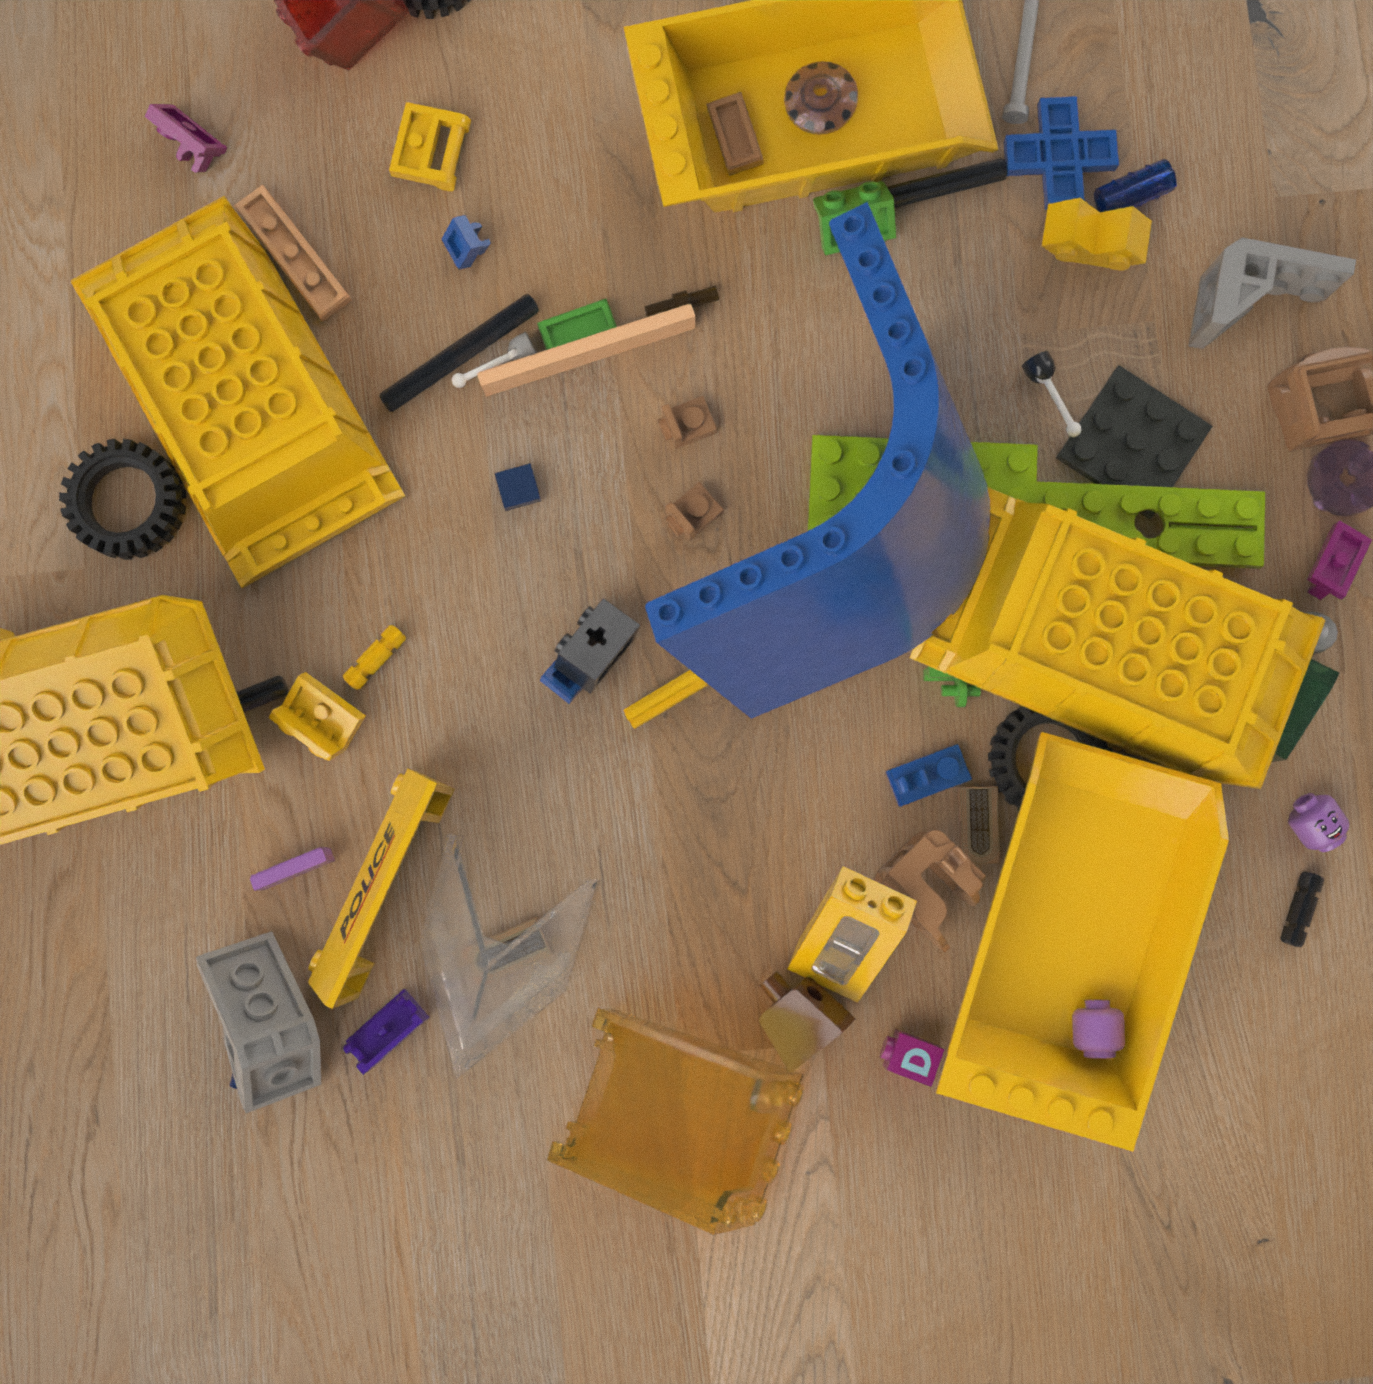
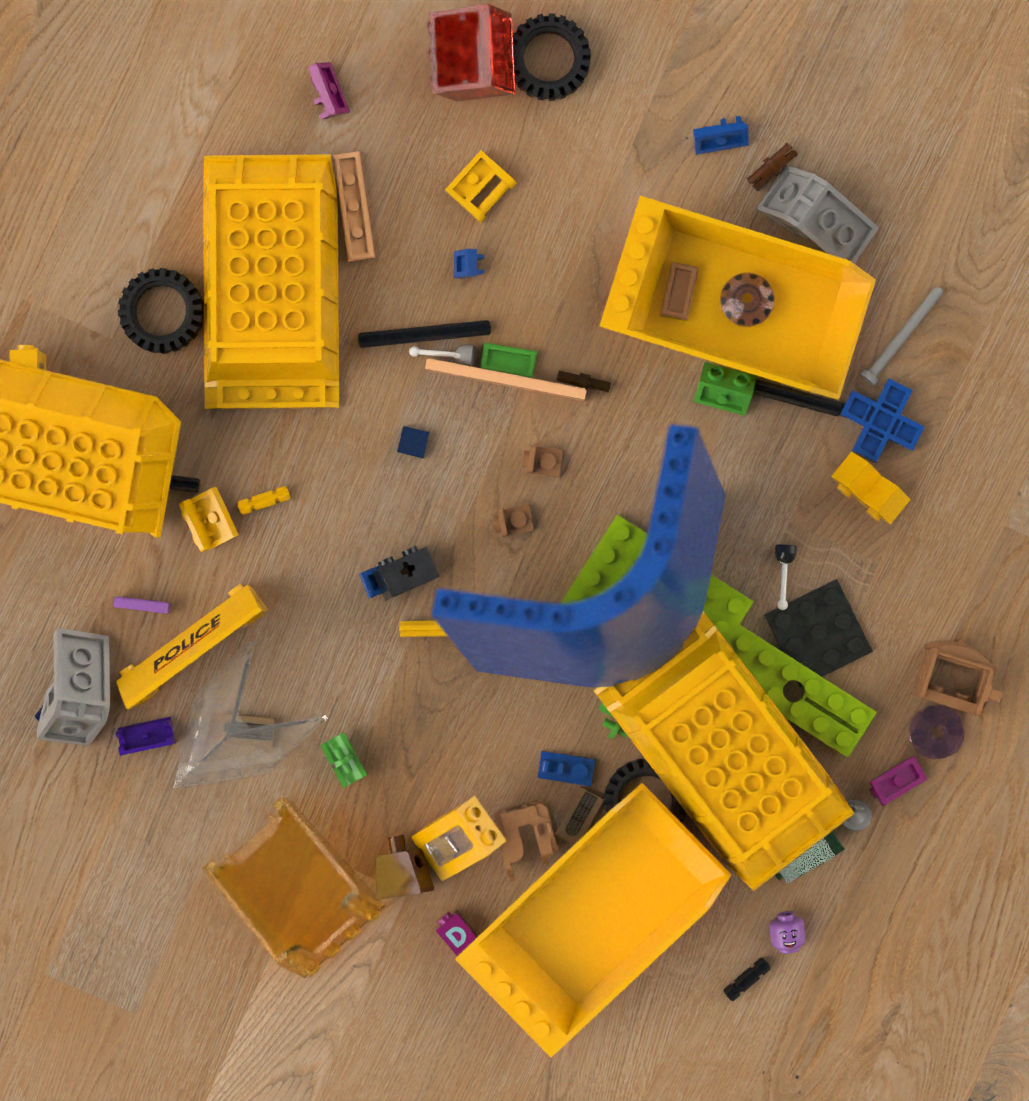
camera: 25 degrees right, 5 degrees up
(649, 919) = (343, 760): none -> bright green hips
(1098, 1029) = (576, 978): medium lavender head -> none
(1136, 187) = (914, 471): clear blue axle -> none
(1259, 268) = (926, 579): light grey bracket -> none

